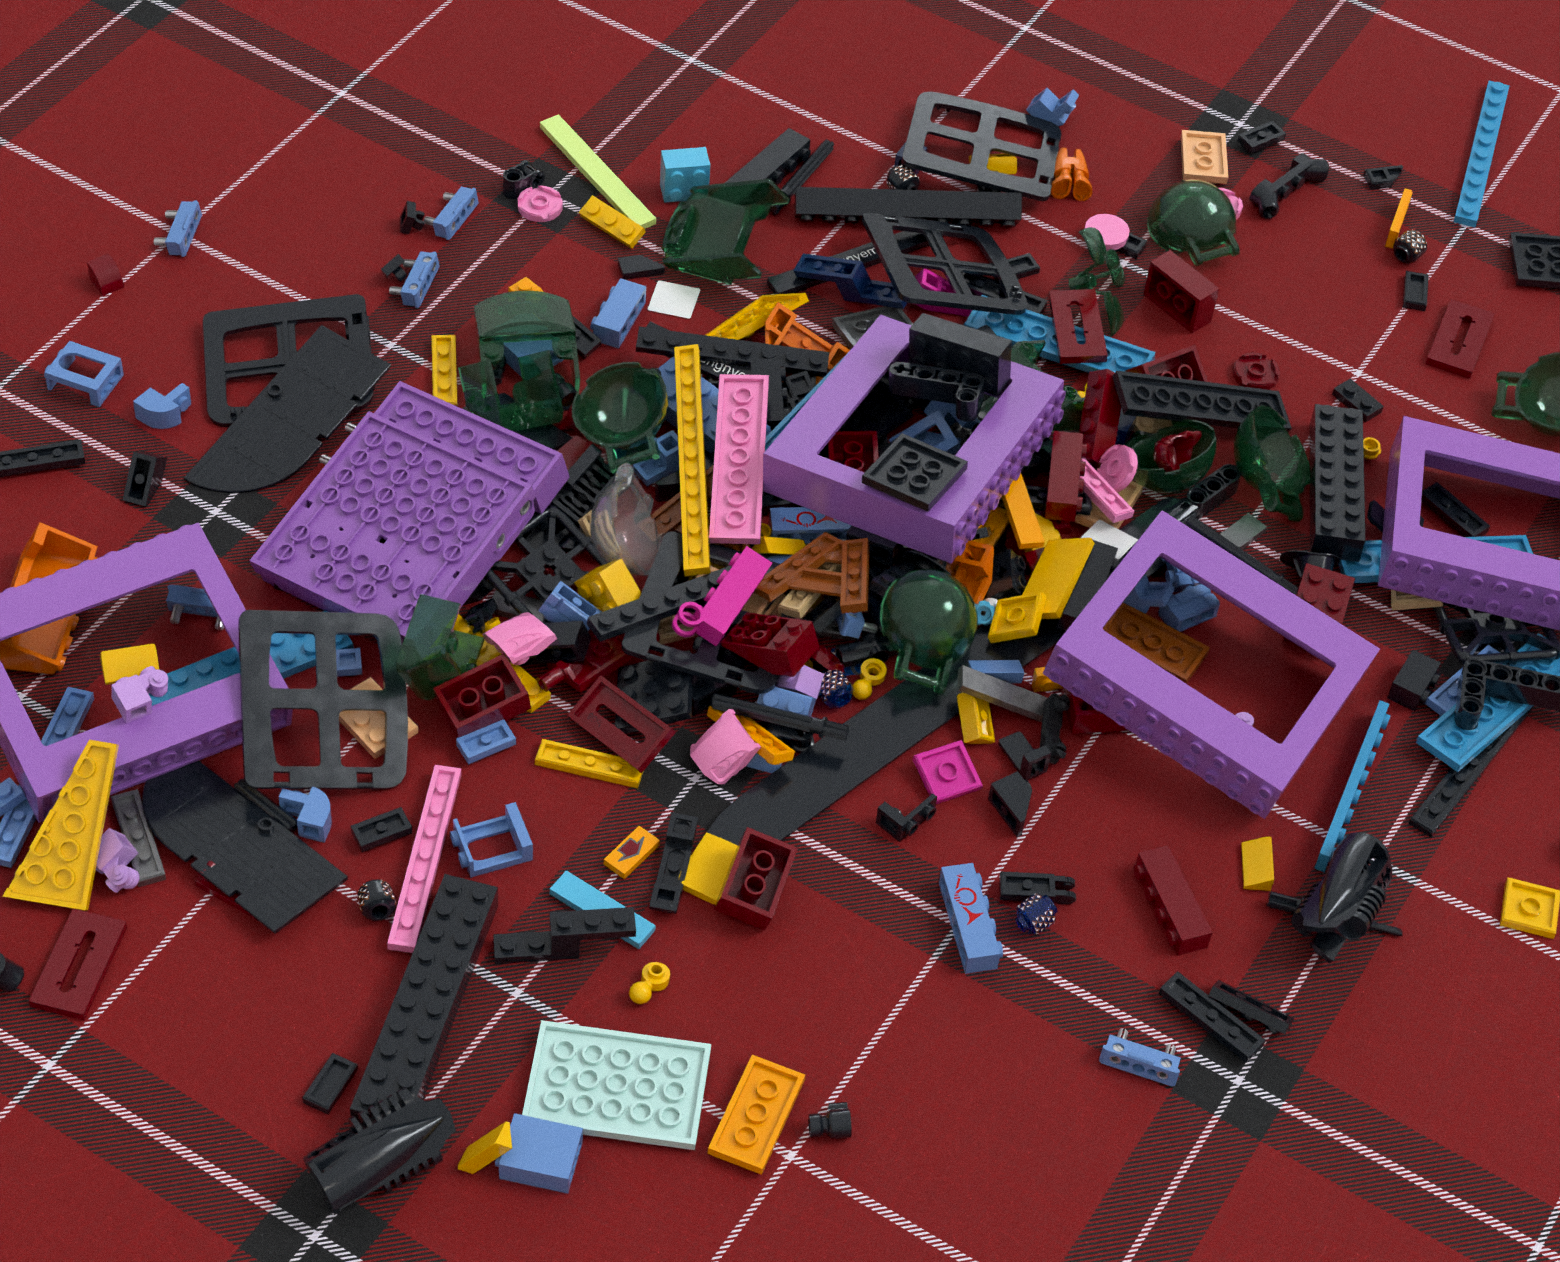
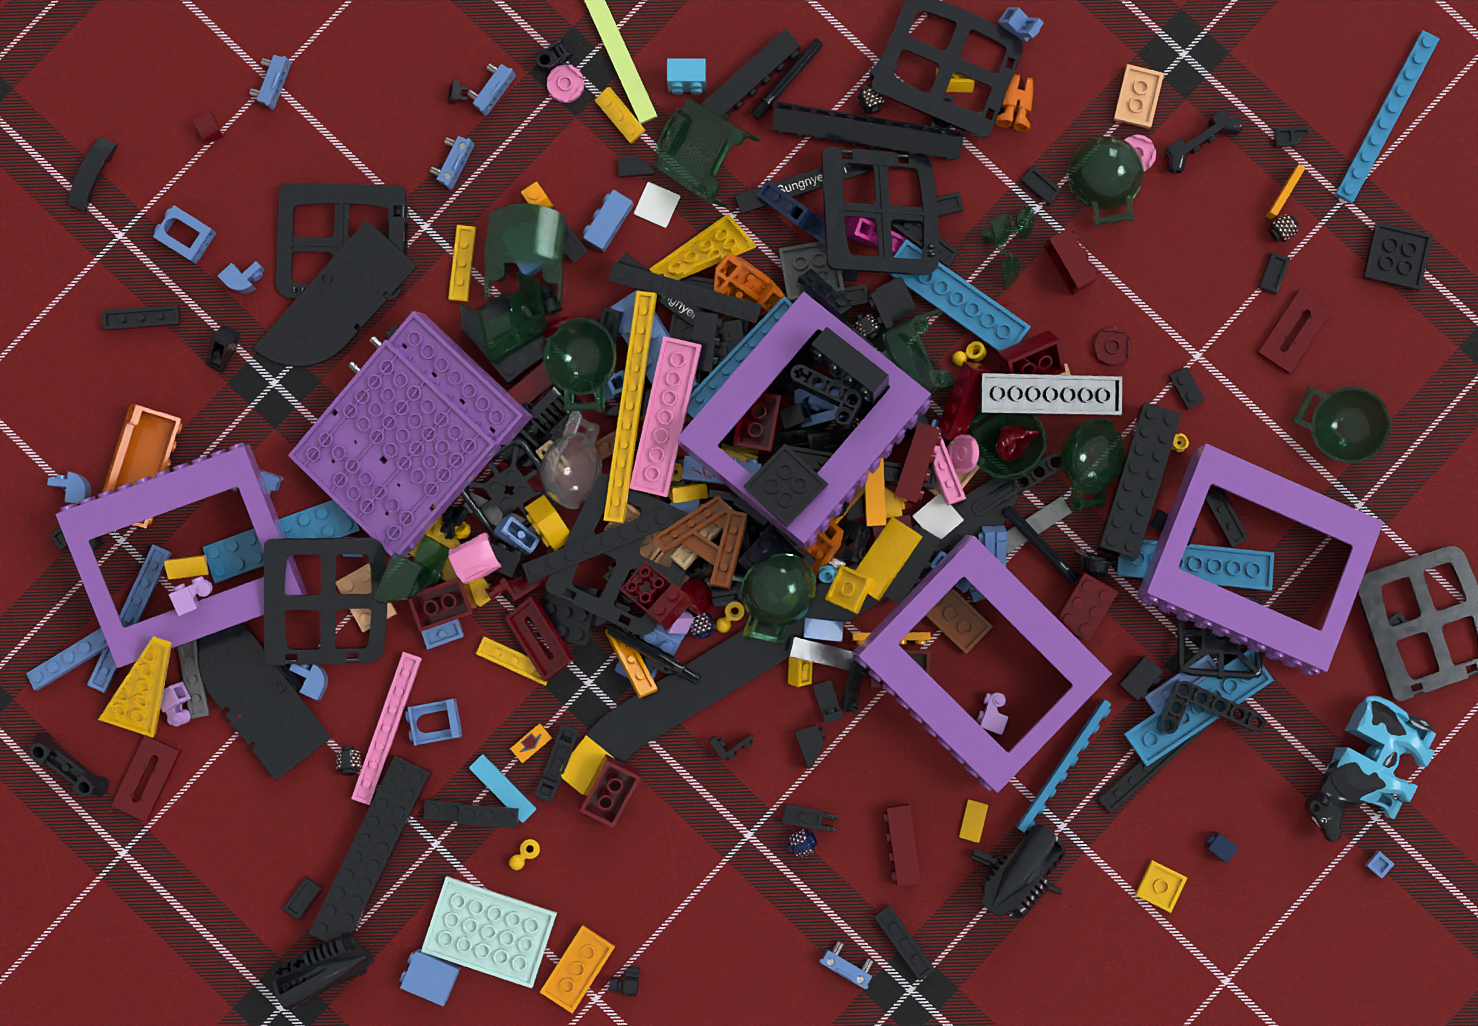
camera: 20 degrees right, 35 degrees up
(381, 829) = (359, 700): black plate -> none
(393, 266) = (435, 150): black tile -> none
(486, 1149) = (393, 973): yellow slope -> none
(724, 749) = (607, 672): bright pink slope -> none
(727, 600) = (630, 558): dark pink hinge -> none
(947, 772) = (769, 709): dark pink tile -> none
(970, 918) = (755, 837): medium blue brick -> none
(1068, 349) = (960, 313): dark red piece -> none
(1113, 229) = (1028, 179): bright pink tile -> none
(1251, 1008) = (933, 940): black plate -> none
(1261, 137) = (1196, 78): black plate -> none

